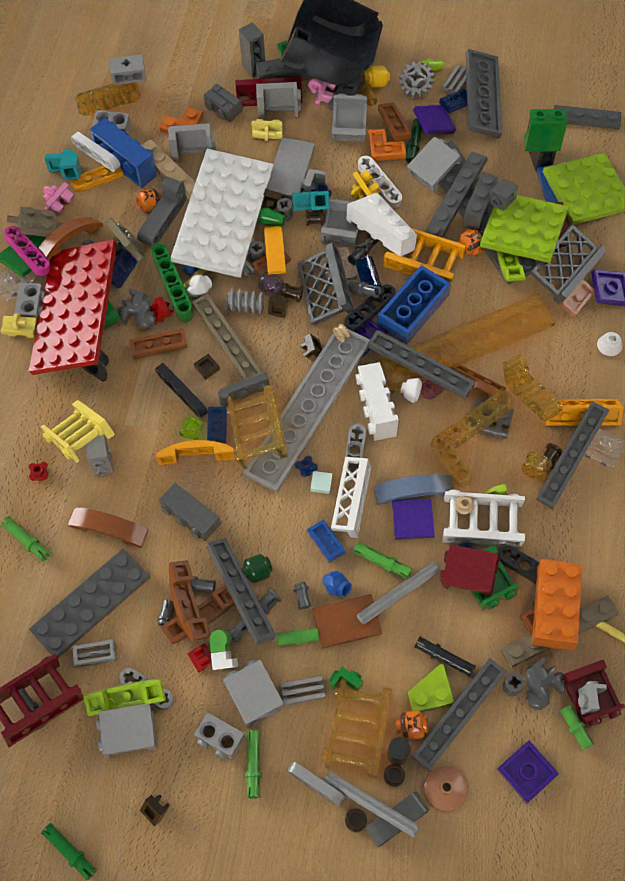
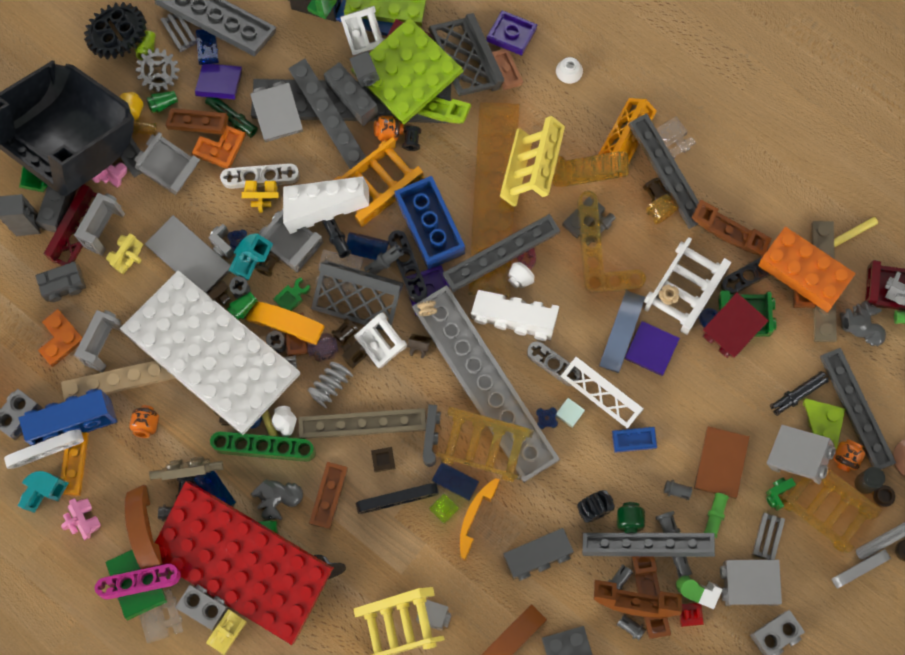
camera: 60 degrees left, 10 degrees up
(35, 221) = (103, 554): dark tan plate -> none
(161, 309) = (289, 473): red tile -> none
(164, 212) = (170, 415): dark grey beam -> none
(251, 534) = (595, 506): none -> black gear
(253, 764) = (824, 619): bright green pin -> none
(294, 316) = (376, 345): none -> white plate
(297, 244) = (290, 297): none -> green plate
(337, 584) = (683, 452): blue rock -> none
(379, 558) = (687, 393): bright green pin -> none
(388, 678) = (801, 453): none -> light grey panel
(395, 94) = (161, 101): none -> green cone
(398, 592) = (720, 400): light grey axle -> none
(429, 41) = (102, 38): none -> black gear
(475, 262) = (411, 132): none -> black bush
(480, 381) = (551, 205): dark orange plate -> none
(498, 490) = (666, 260): lime tile -> none
(509, 346) = (544, 165): none -> light yellow fence
(517, 680) = (860, 348): dark grey bush -> none
(535, 181) = (356, 31): none -> white plate
(554, 525) = (729, 230): none -> dark orange slope

